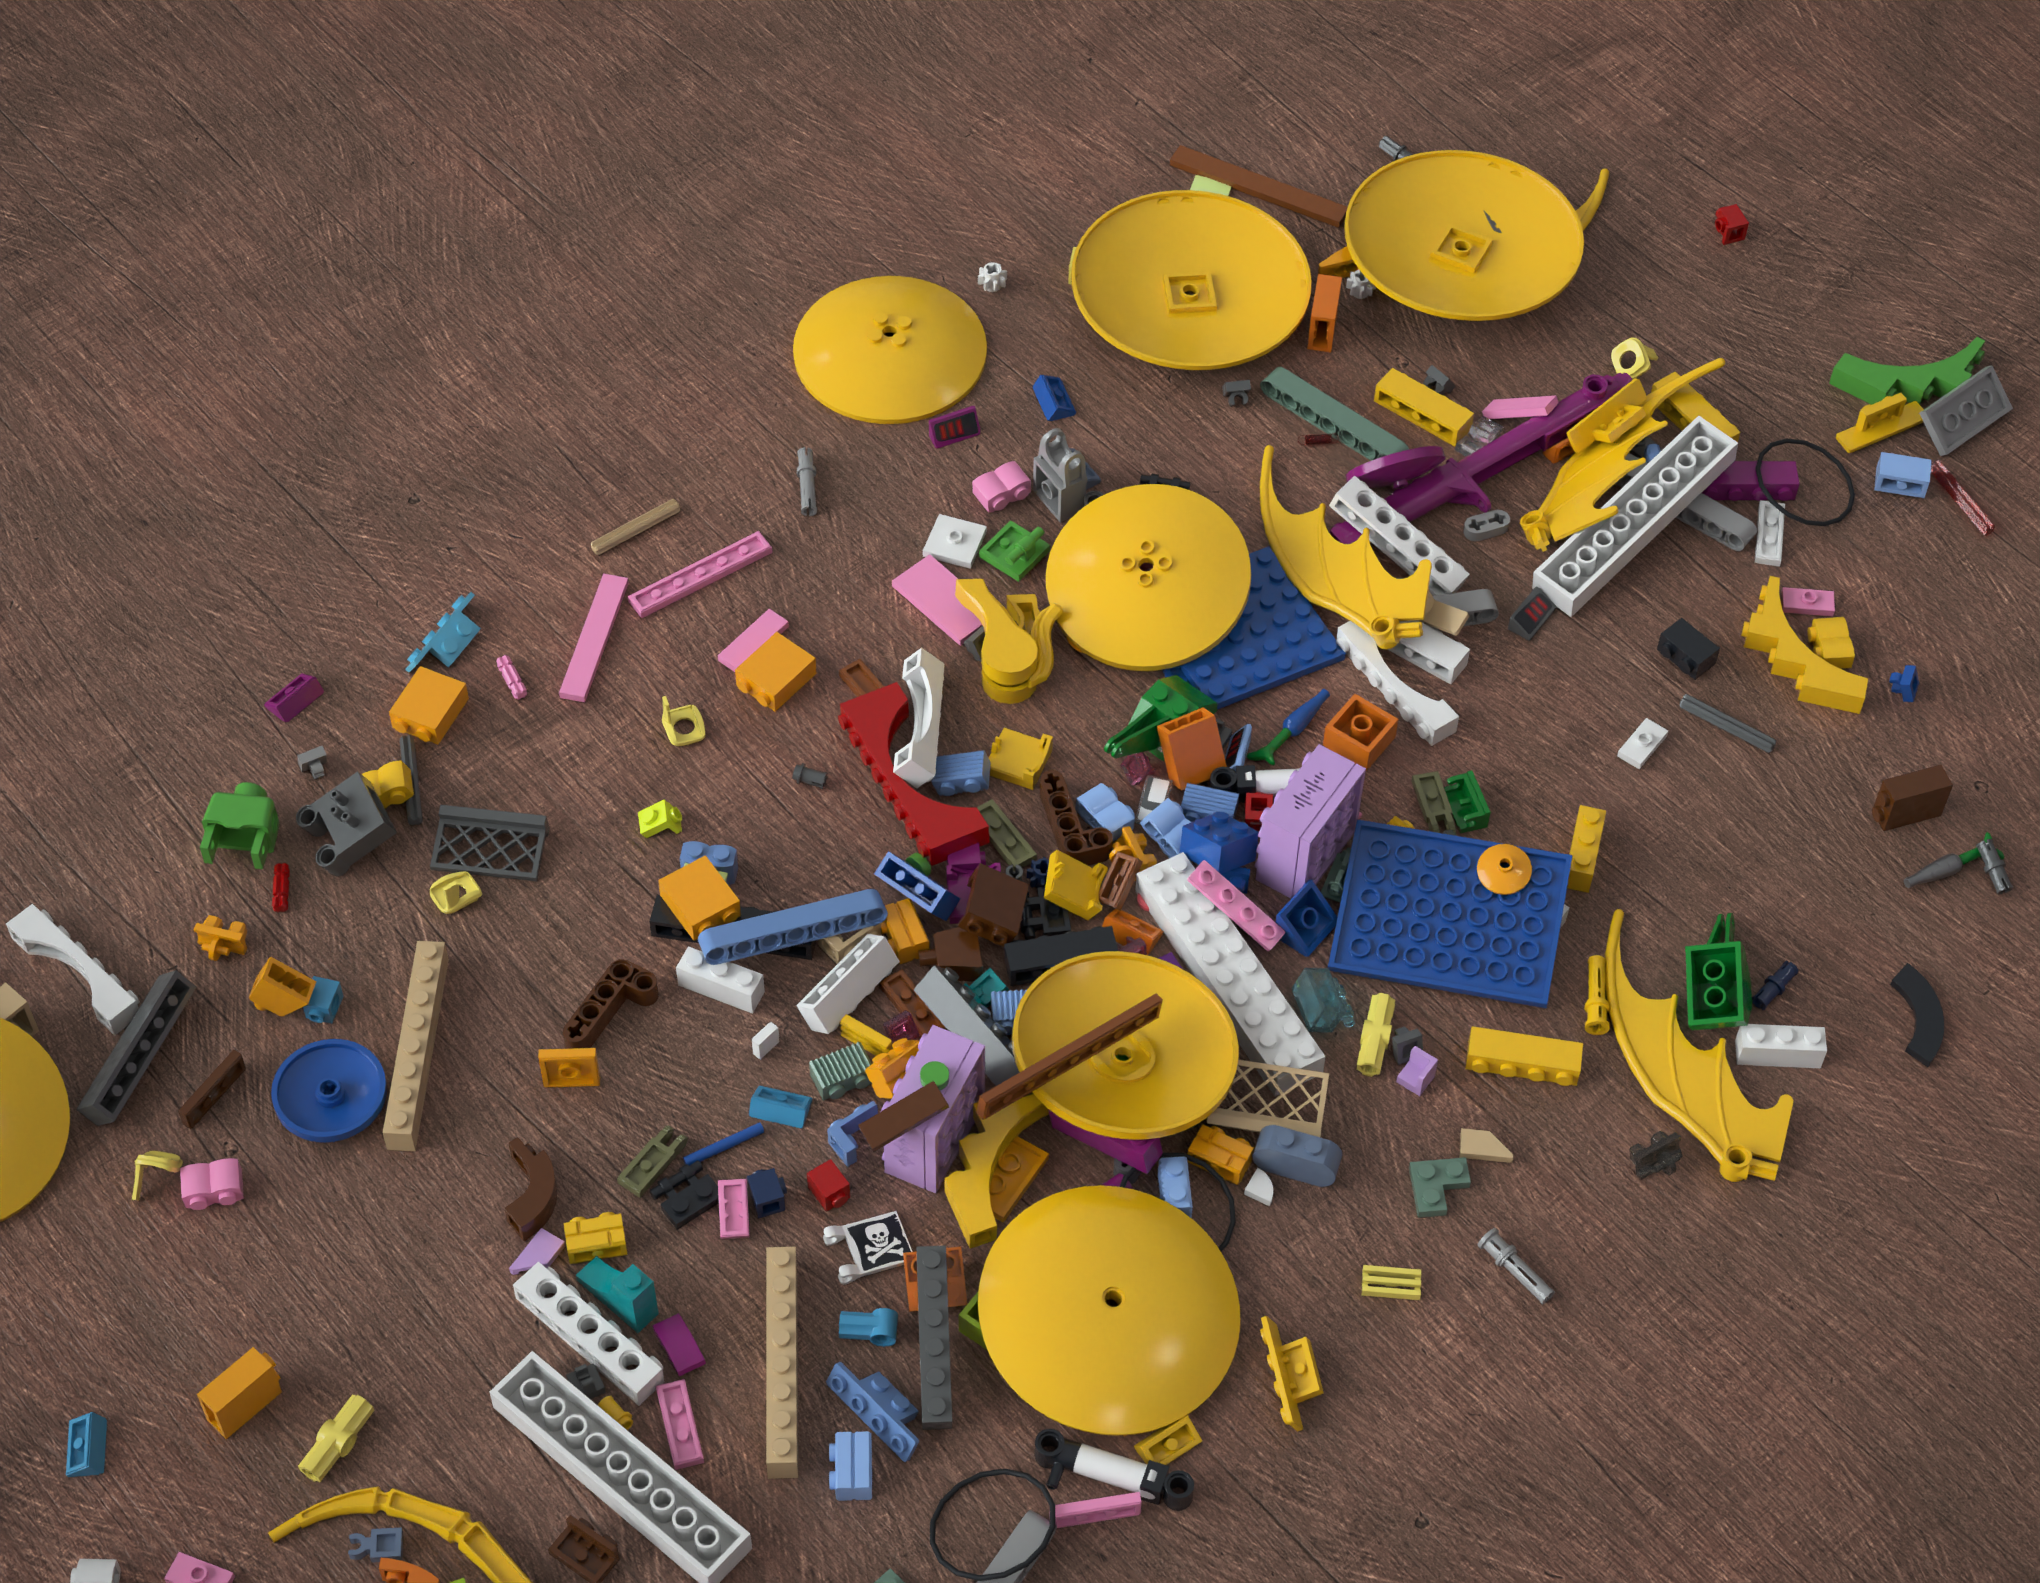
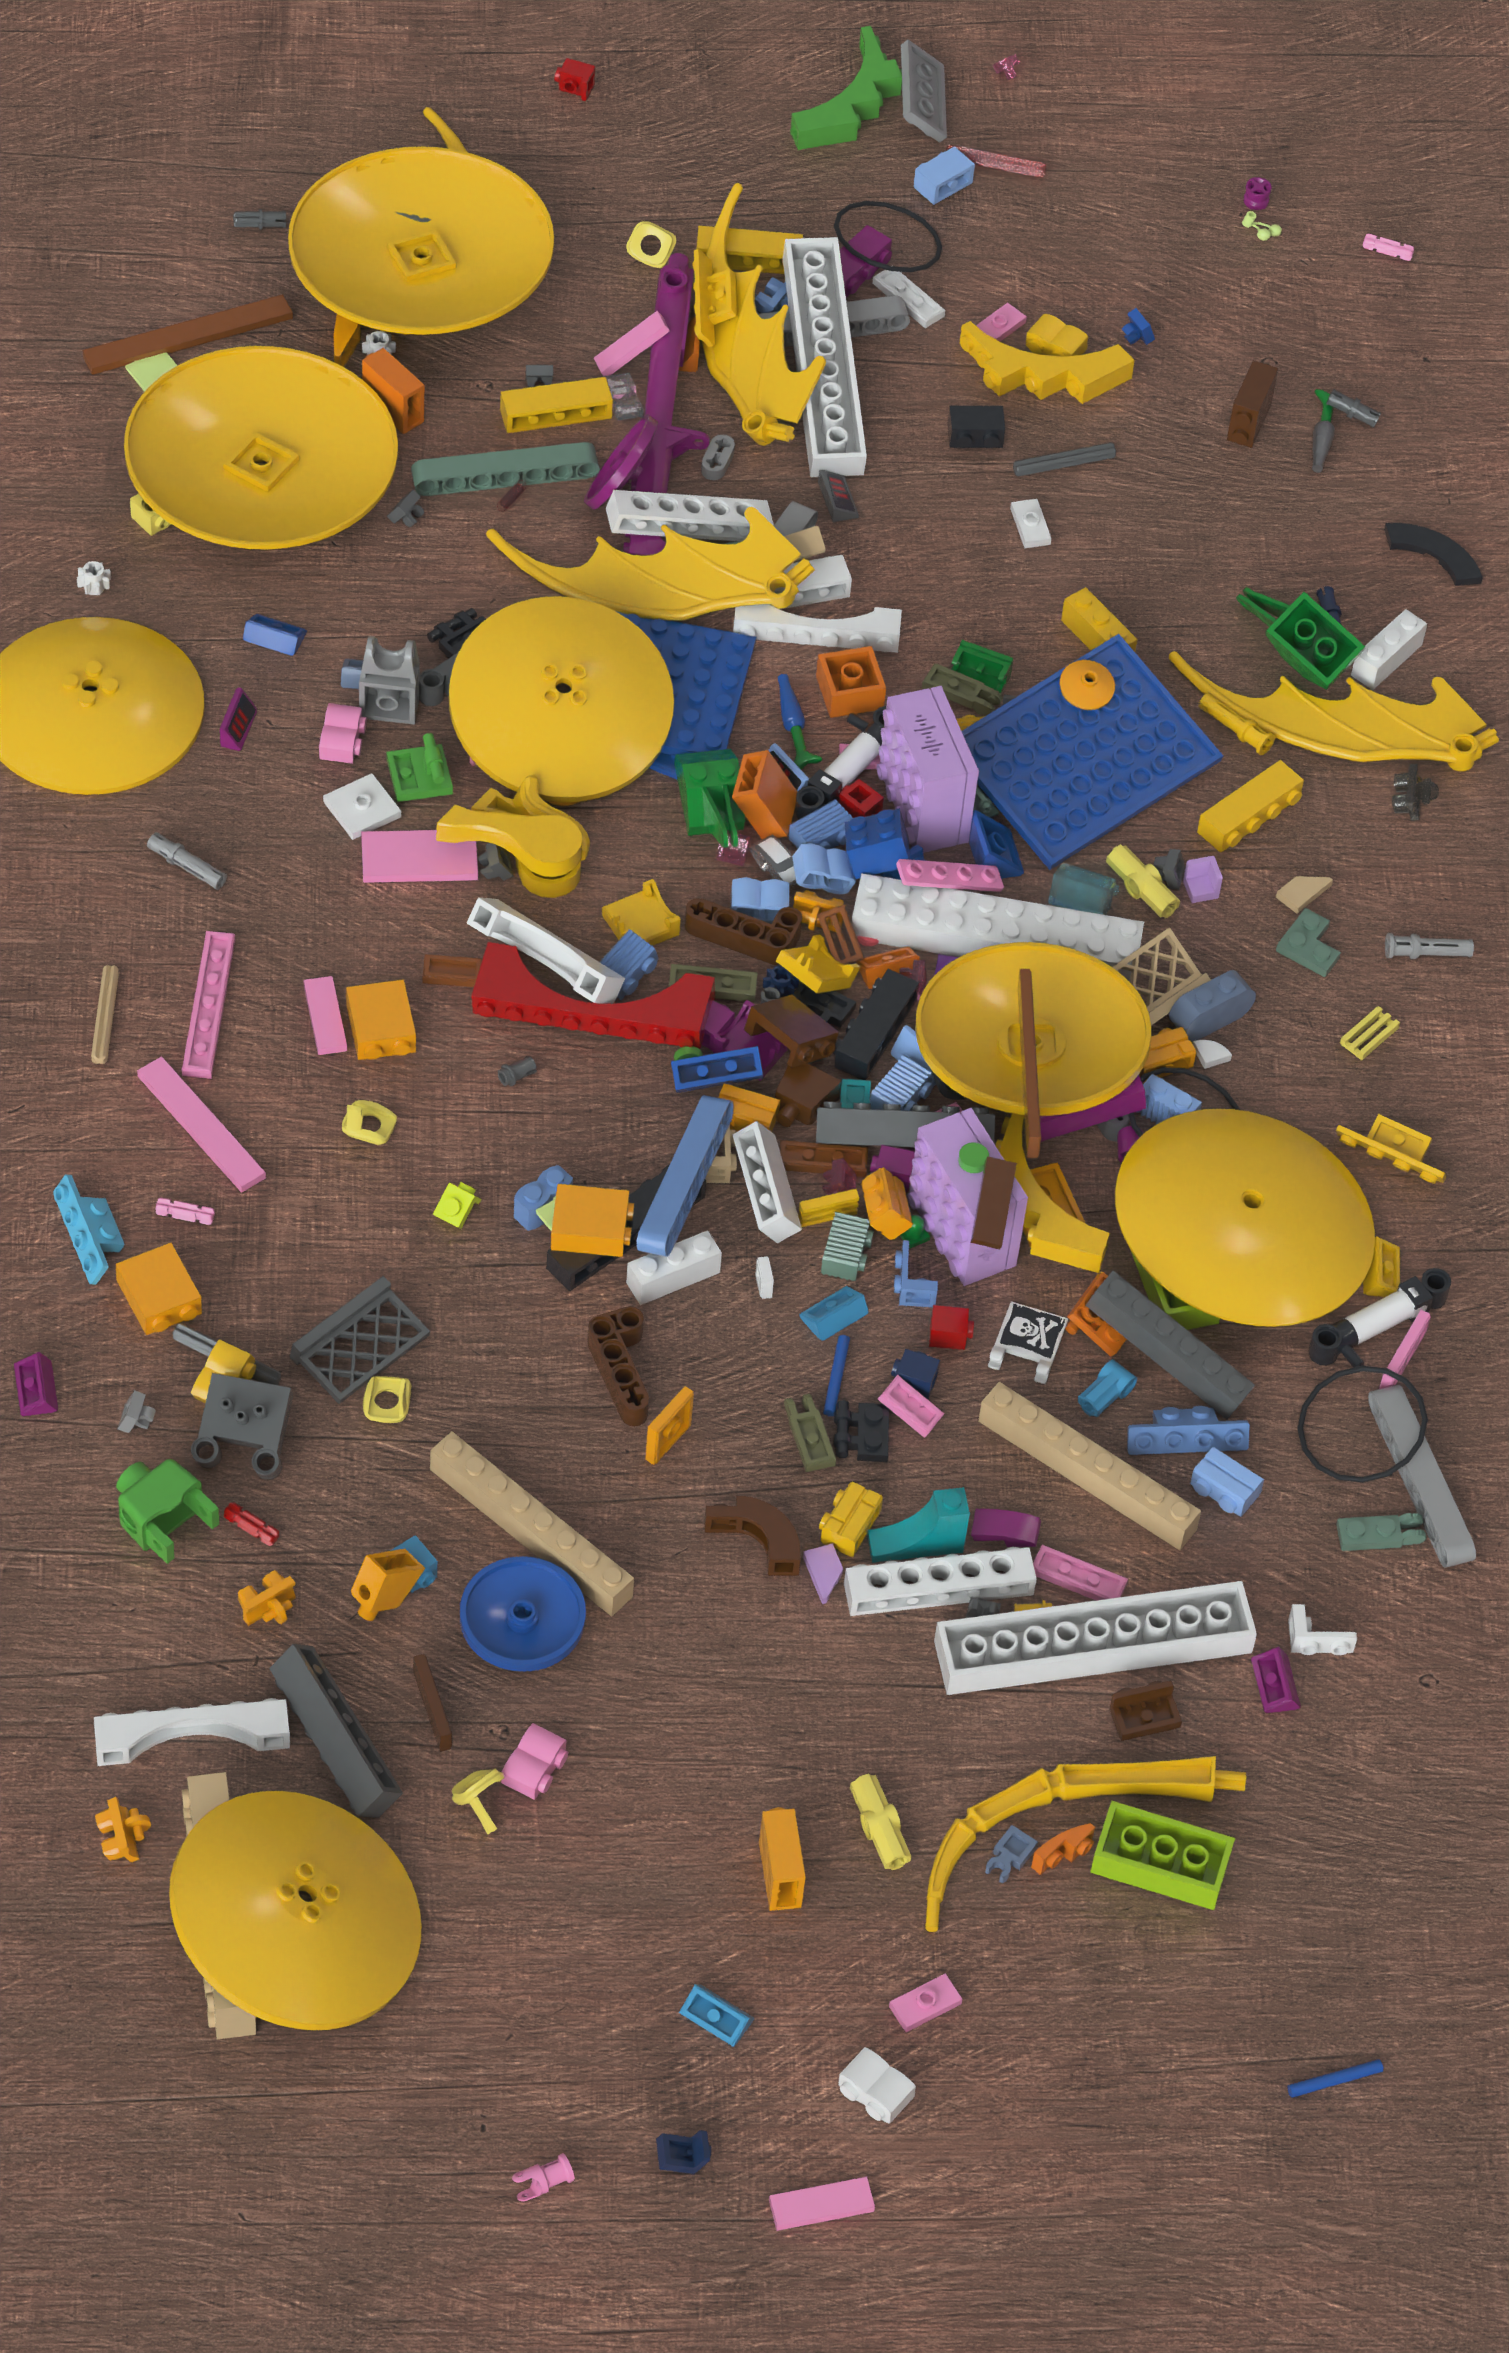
camera: 55 degrees left, 0 degrees up
(1880, 422) = (877, 150): yellow bracket -> none

